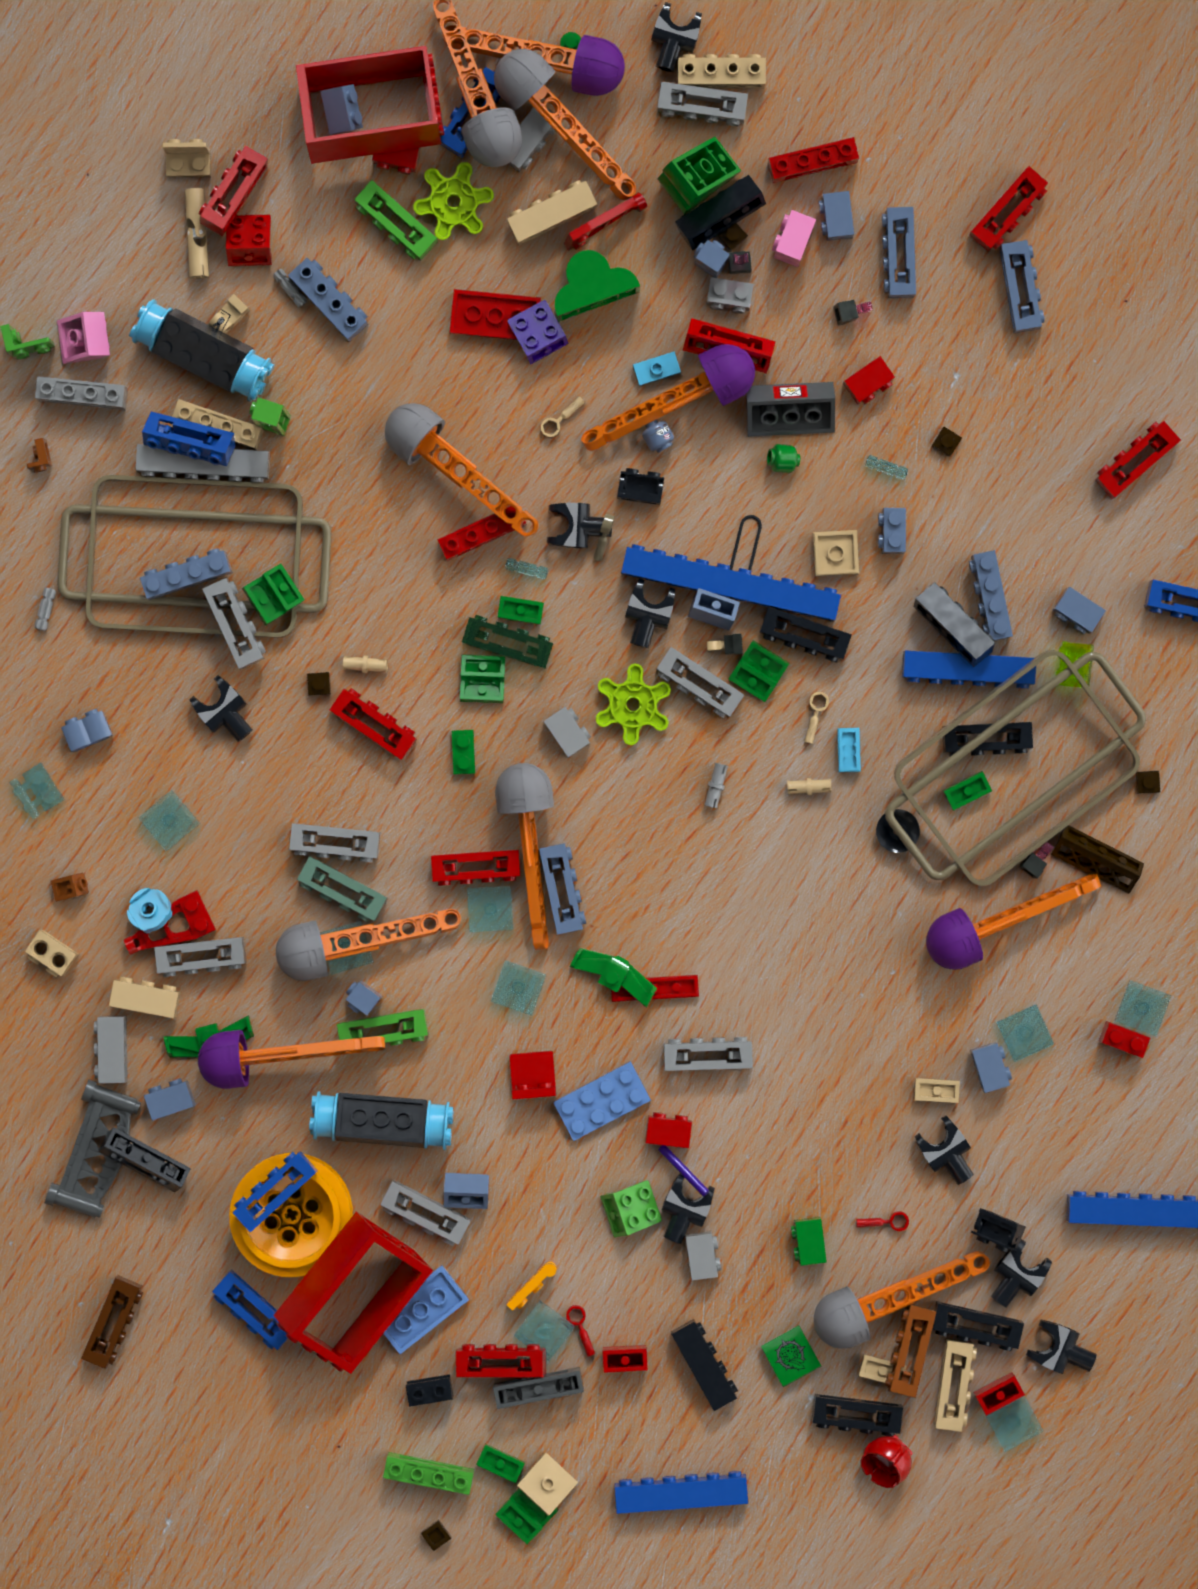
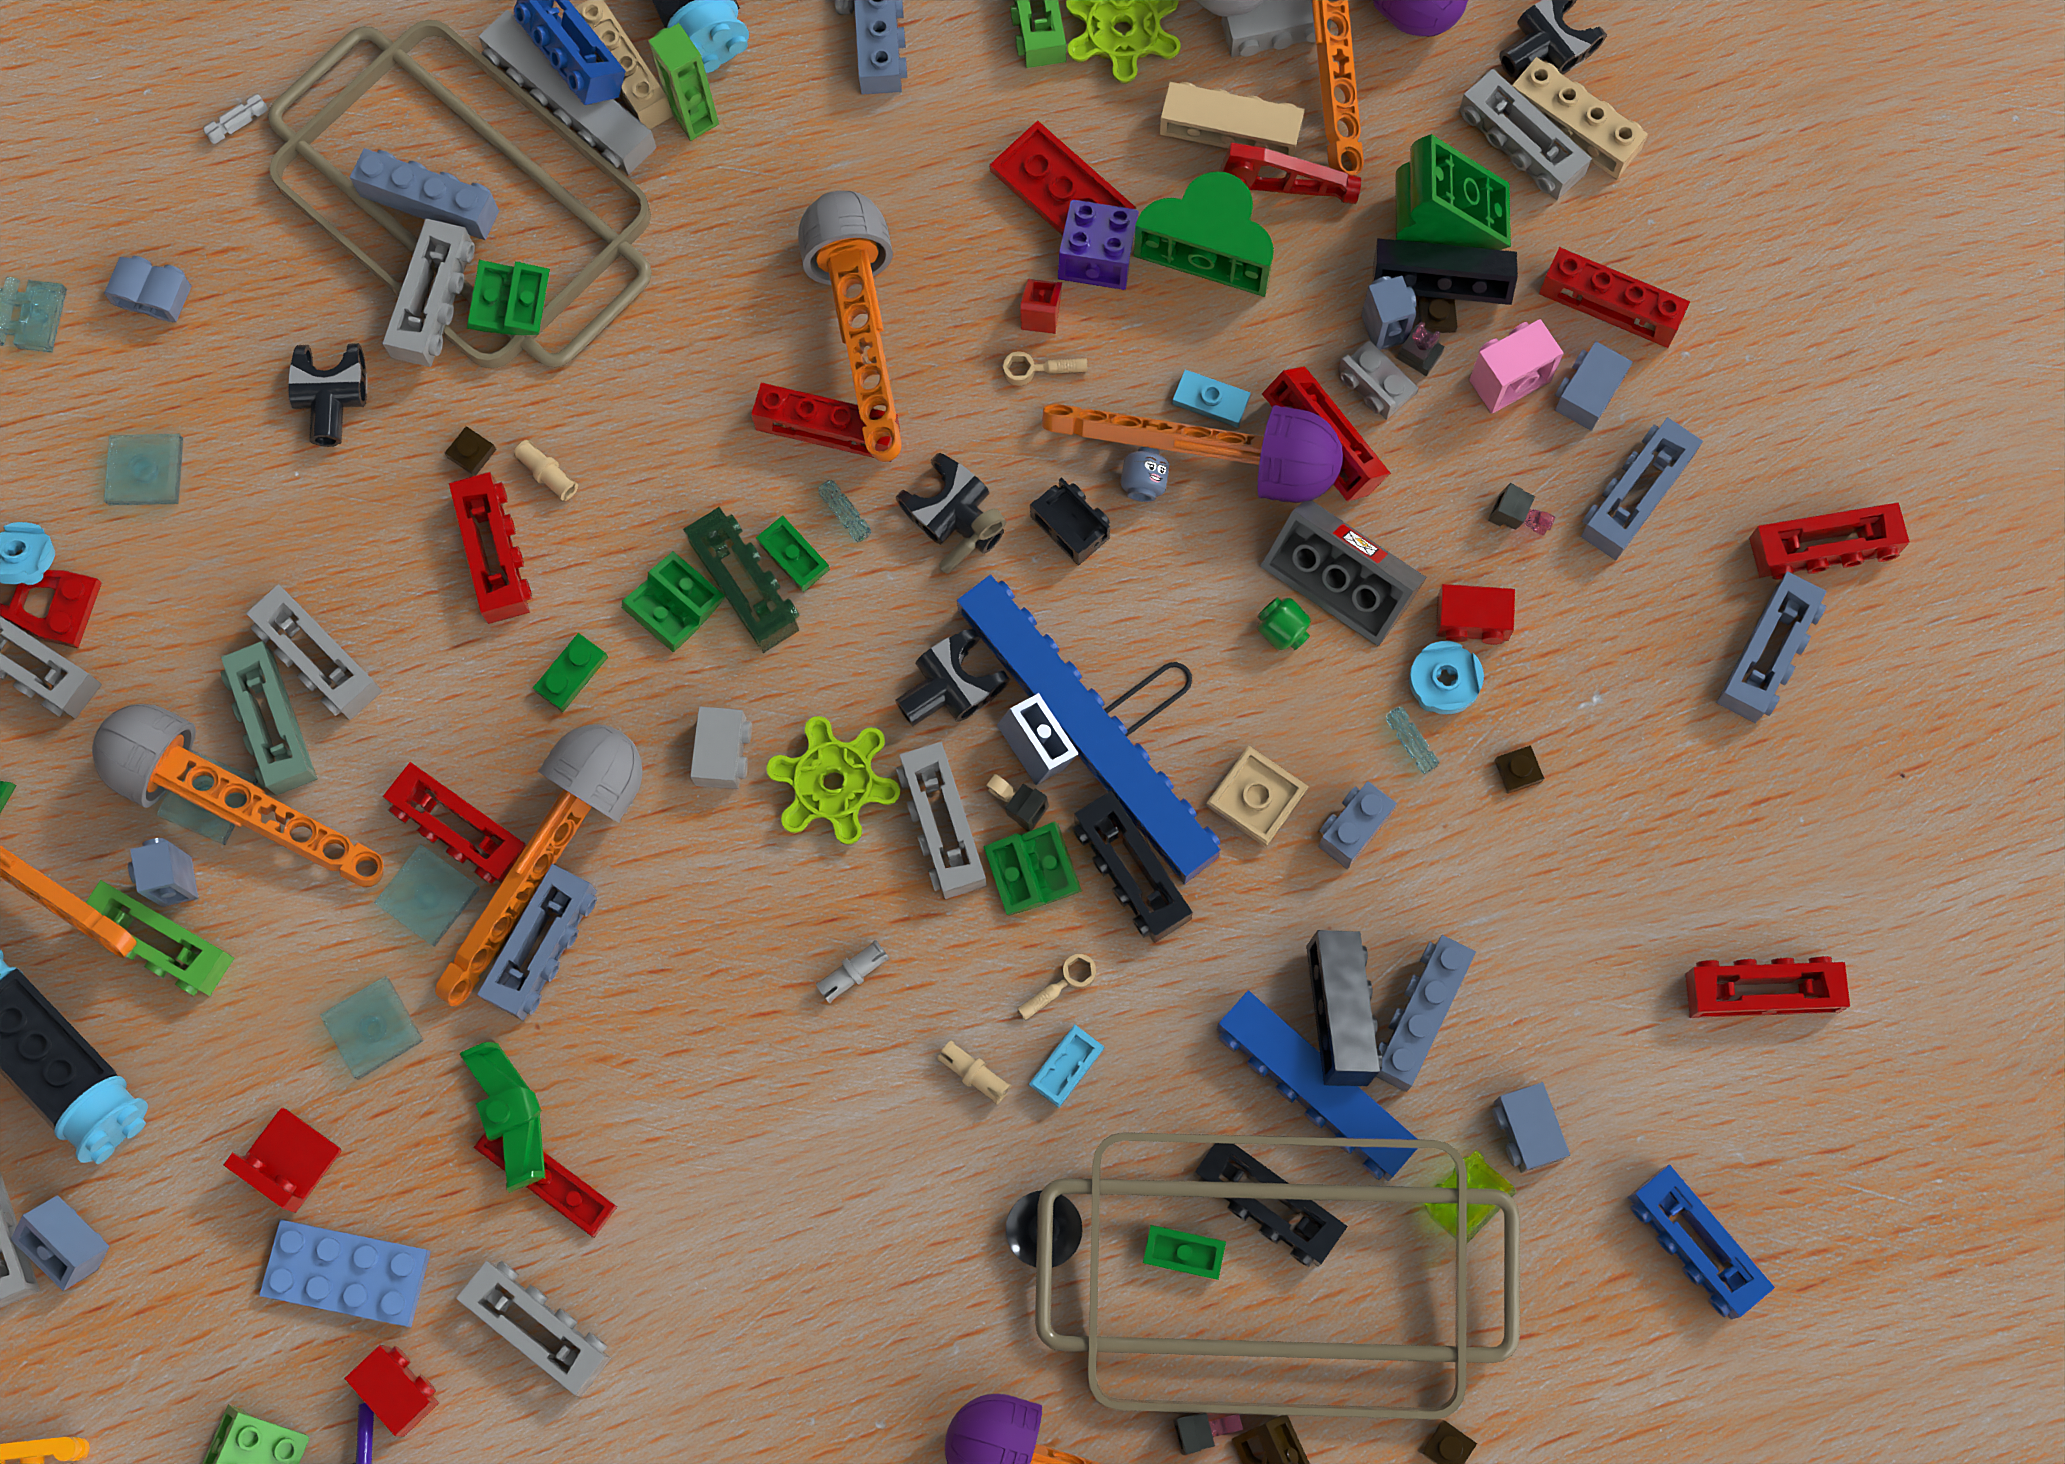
camera: 40 degrees right, 15 degrees down
(534, 385) = (1040, 306): none -> red slope
(879, 411) = (1457, 661): none -> medium azure plate

